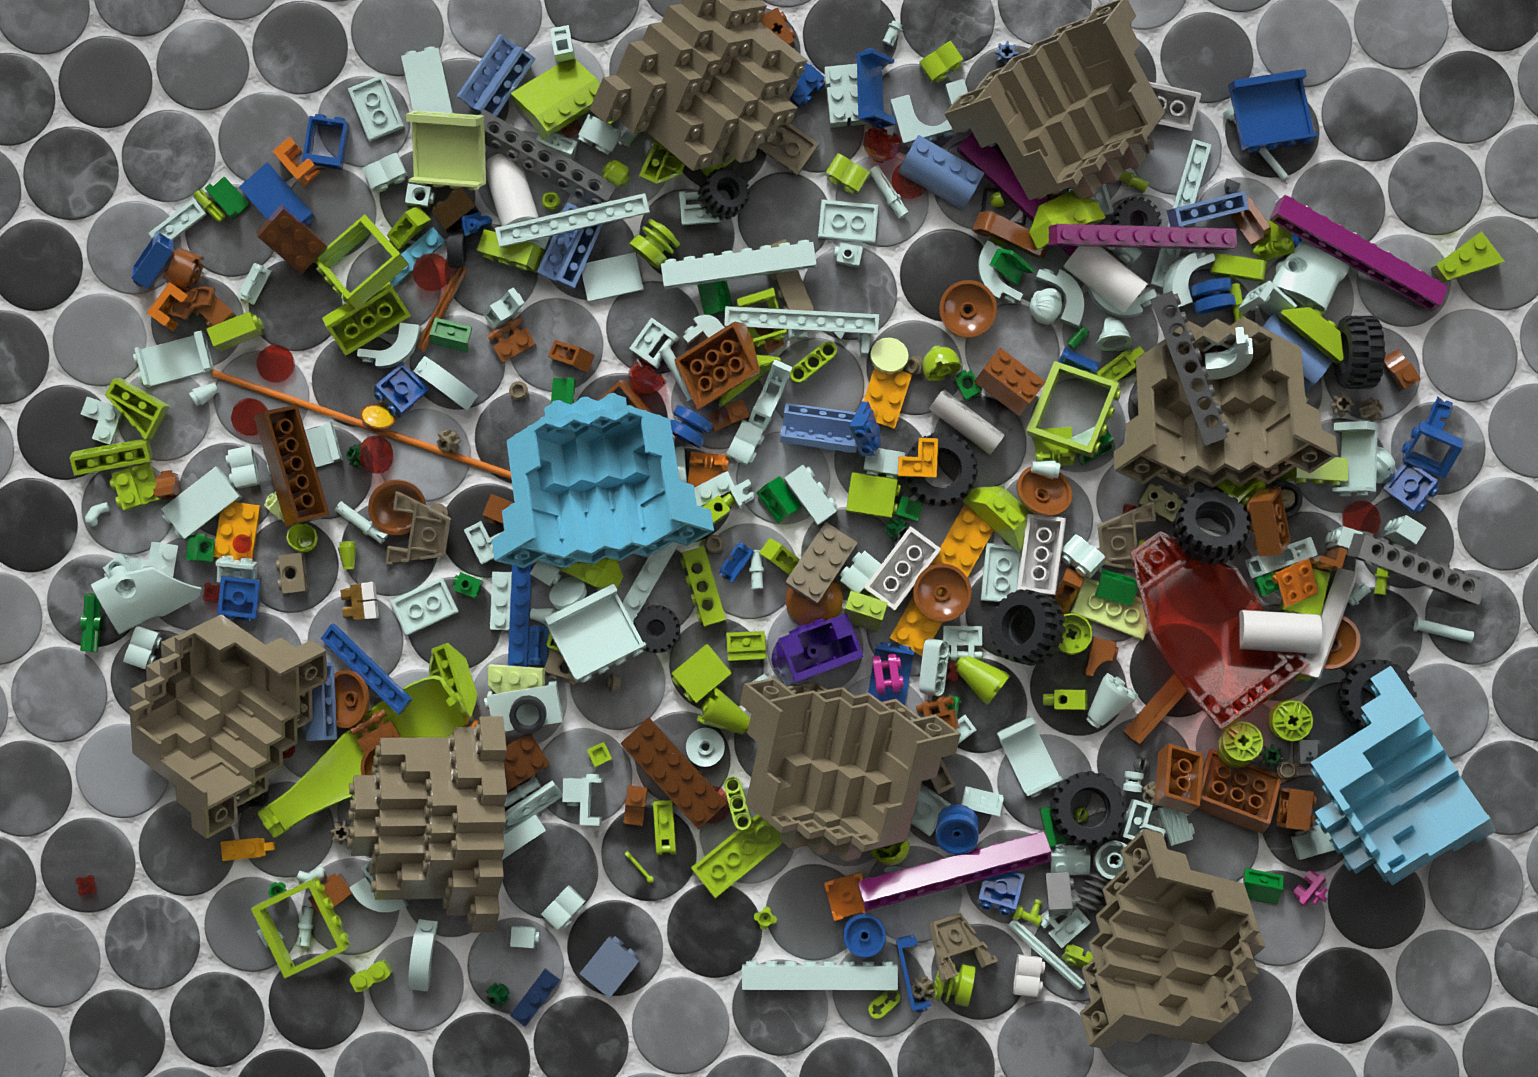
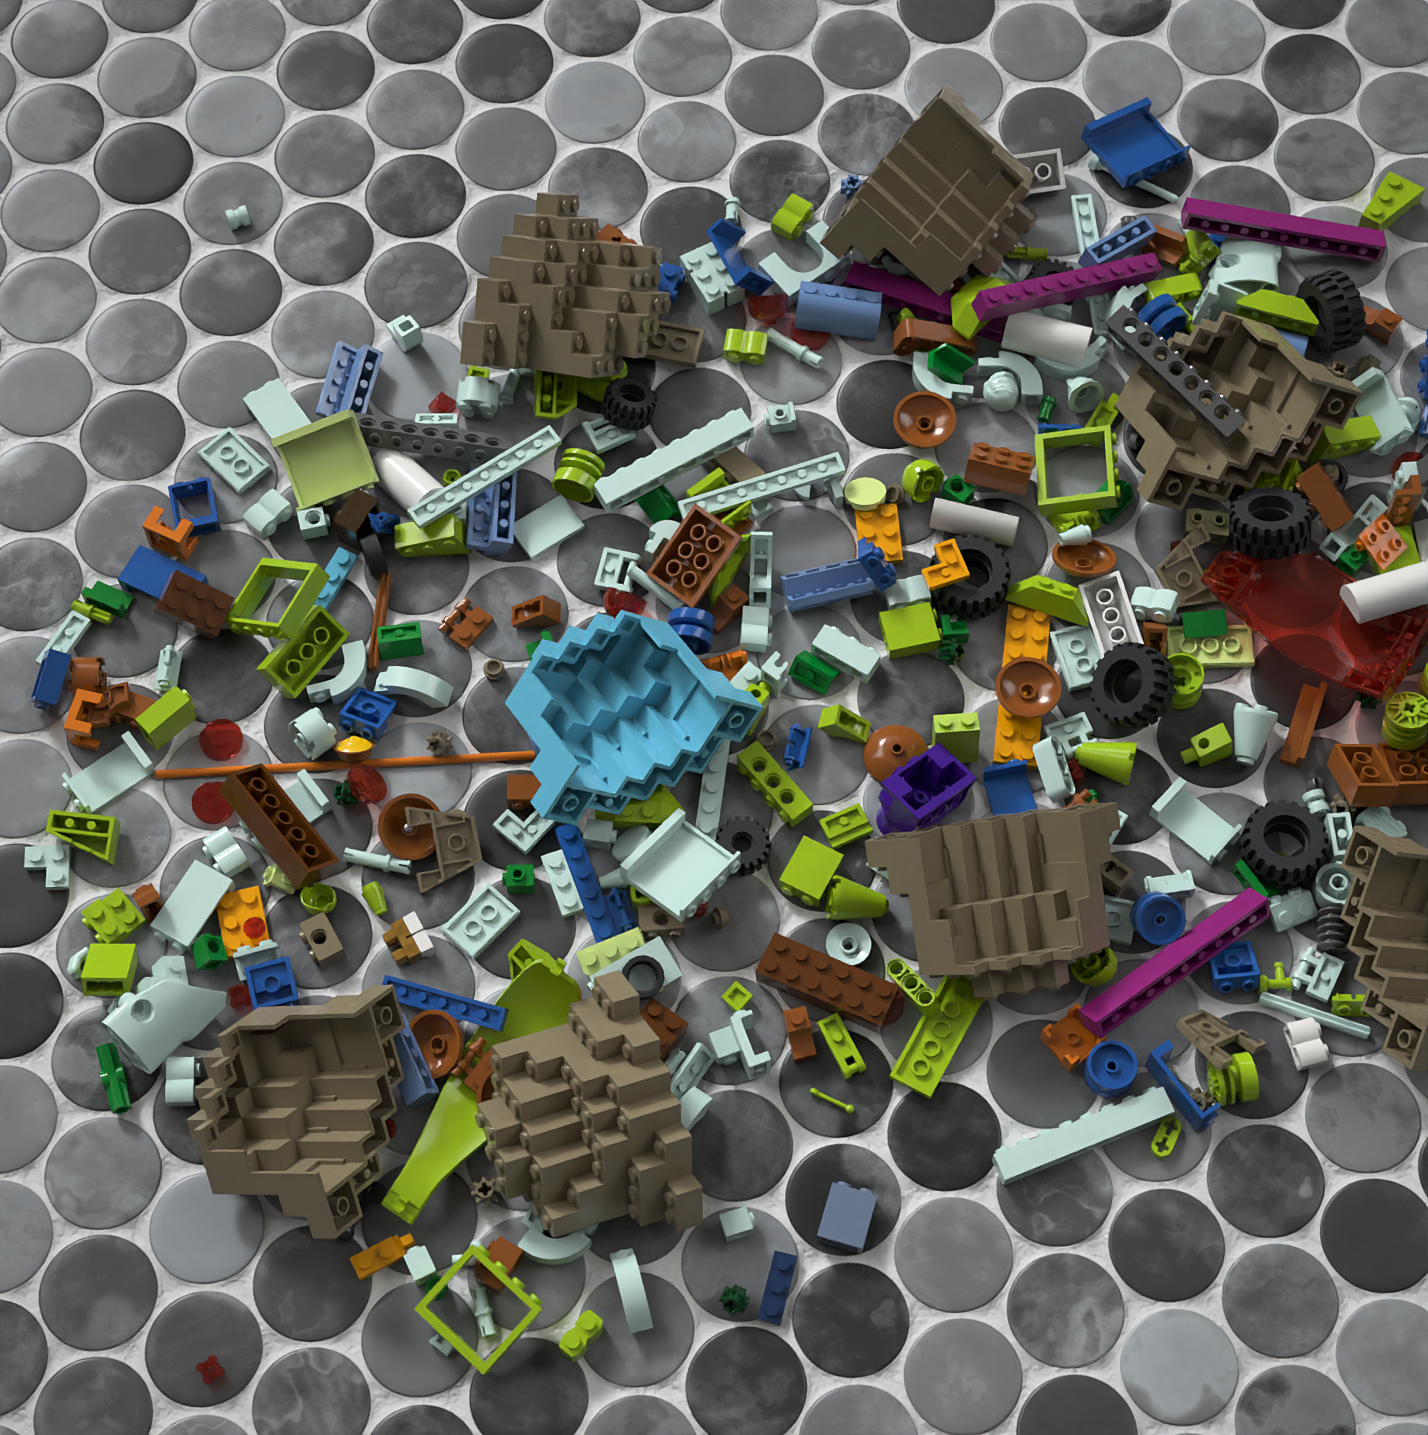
camera: 25 degrees left, 20 degrees down
(111, 456) = (74, 894): lime brick -> none
(116, 533) = (109, 969): none -> lime brick
(203, 394) = (153, 797): light aqua cone -> none
(271, 869) = (420, 1264): none -> light aqua brick
(347, 392) = (312, 733): none -> light aqua brick
(408, 226) = (315, 548): lime arch -> none
(431, 272) = (354, 588): clear red tile -> none
(504, 309) = (448, 593): light aqua brick -> none
(557, 97) = (422, 379): lime slope -> none
(563, 908) = (767, 1175): light aqua brick -> none
(616, 173) = (510, 427): lime head -> none
(756, 570) = (823, 748): light aqua pin -> none
(770, 918) = (992, 1092): lime plate -> none
(817, 354) = (793, 520): lime beam -> none
(820, 563) = (887, 713): dark tan plate -> none
(848, 221) = (765, 389): light aqua tile -> none
(860, 572) = (933, 701): light aqua brick -> none
(895, 681) = (1010, 783): dark pink brick -> none
(902, 567) = (975, 681): white brick -> none
(1059, 893) = (1297, 943): hinge -> none
(1099, 652) = (1217, 690): dark orange arch -> none
(1232, 360) = (1216, 352): light aqua arch -> none

